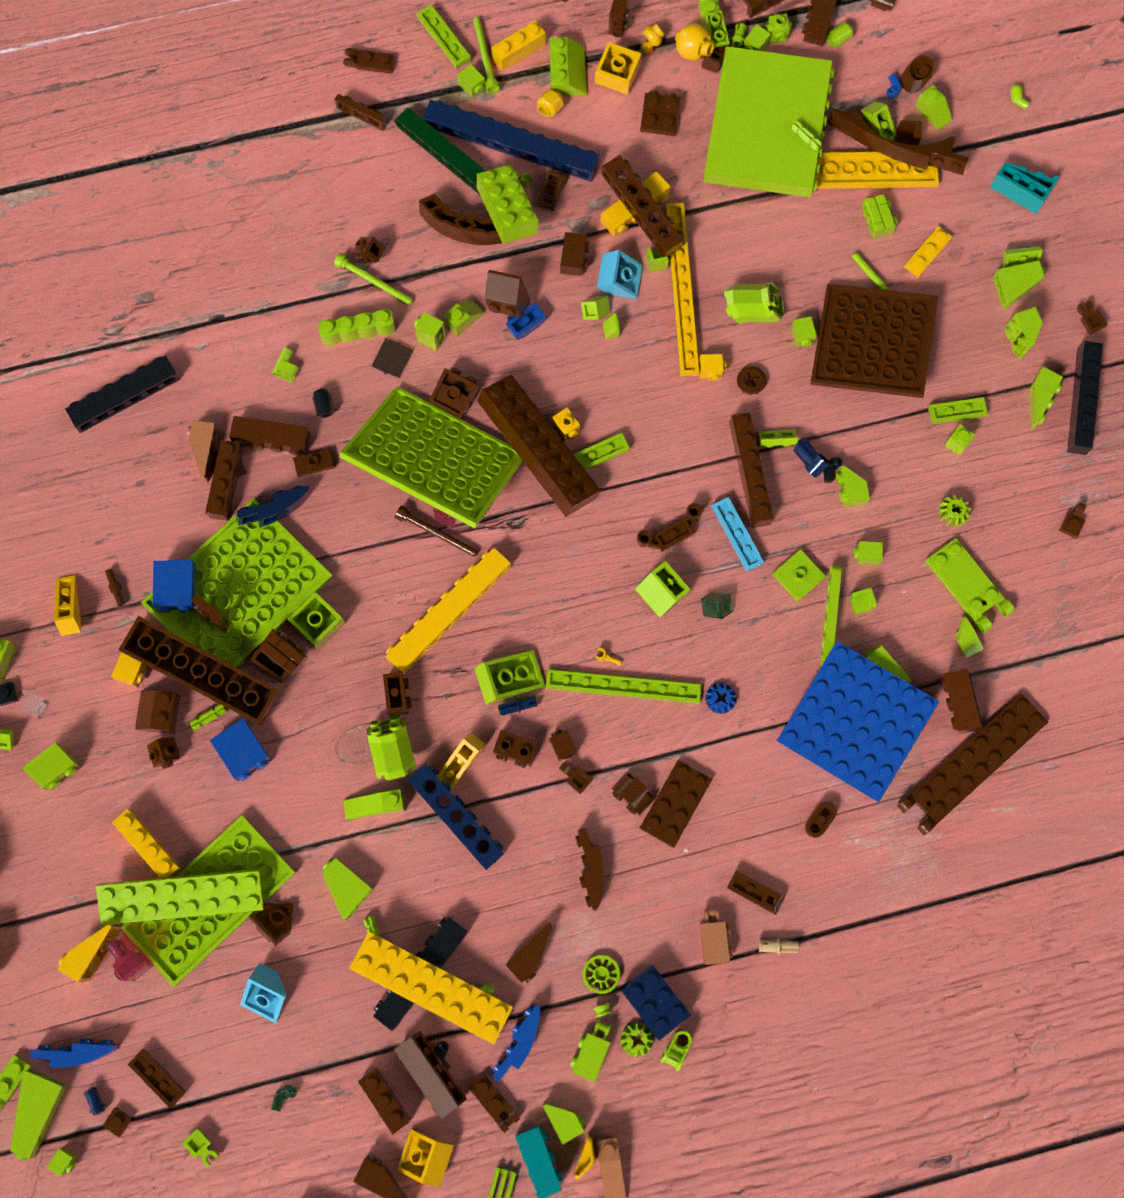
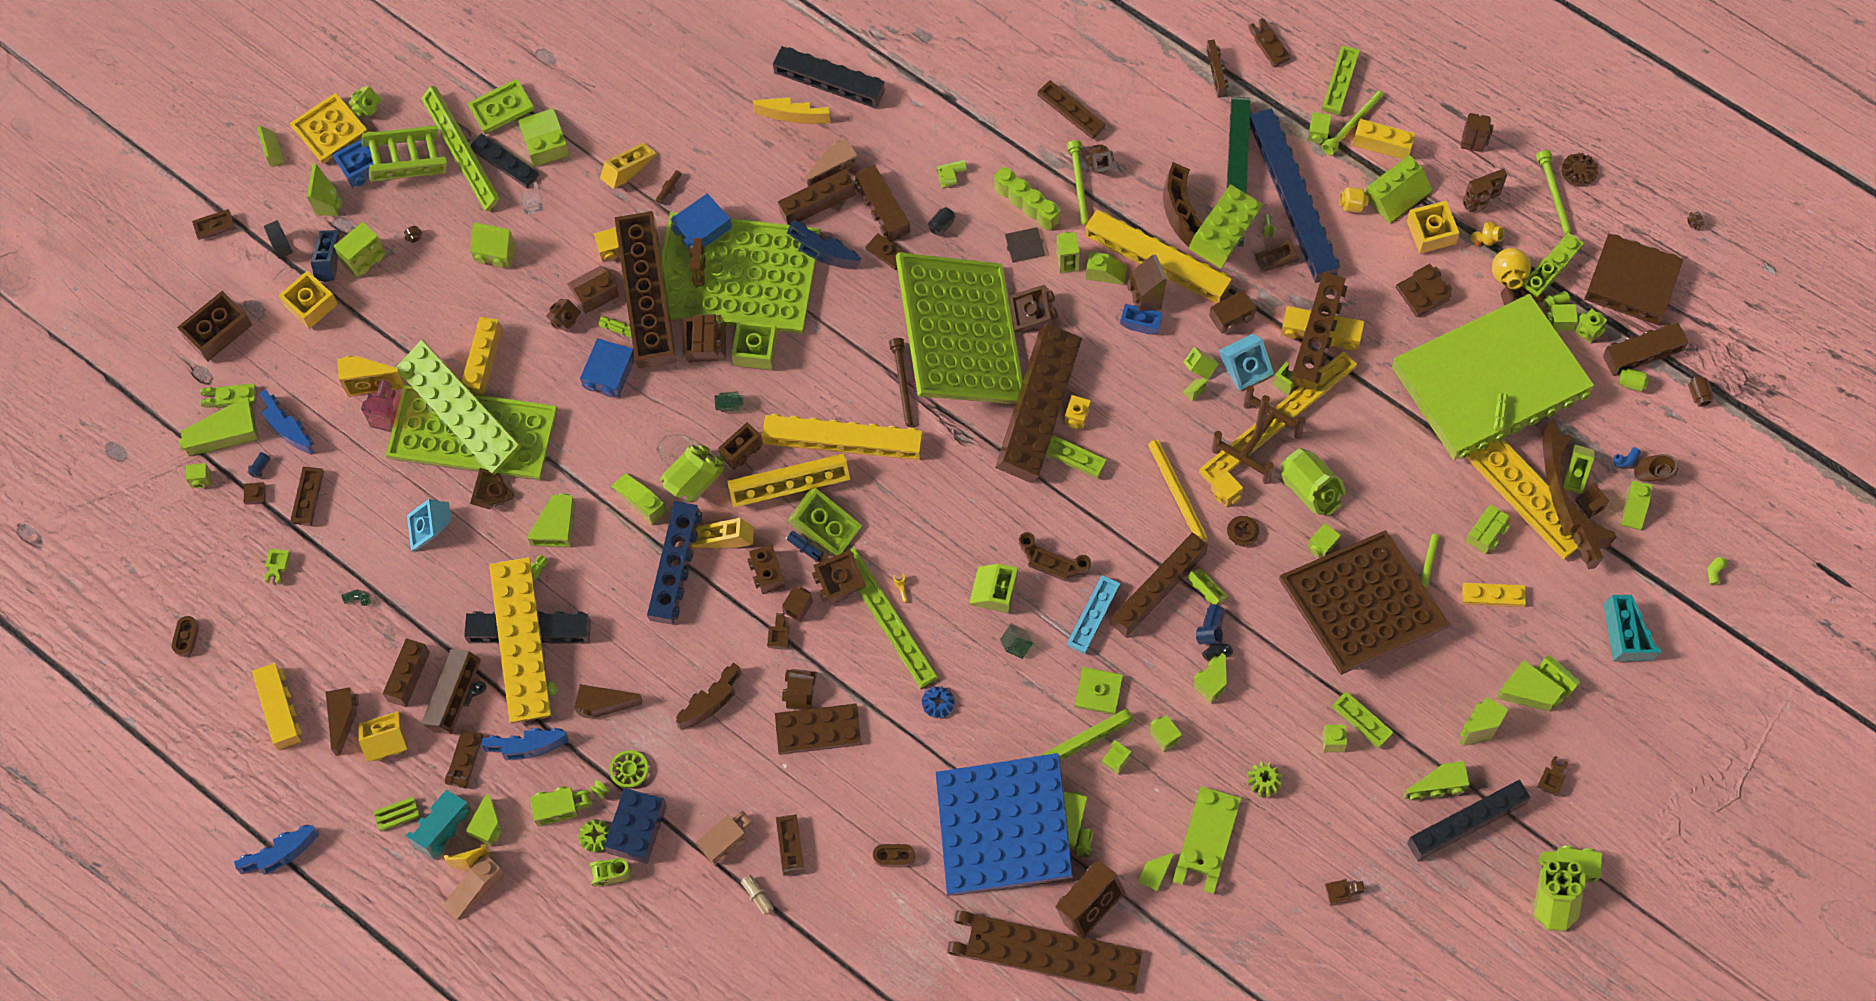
camera: 60 degrees right, 10 degrees down
(124, 448) = (783, 110): none -> yellow slope
(306, 239) = (1071, 109): none -> reddish brown plate
(348, 675) = (728, 401): none -> clear green brick
(454, 678) = (788, 480): none -> yellow brick
(474, 273) = (1177, 266): none -> yellow brick
(566, 699) = (838, 577): none -> reddish brown plate
(683, 401) = (1176, 489): none -> yellow axle
(688, 306) = (1262, 424): none -> reddish brown piece
(912, 673) = (1085, 840): none -> lime pin

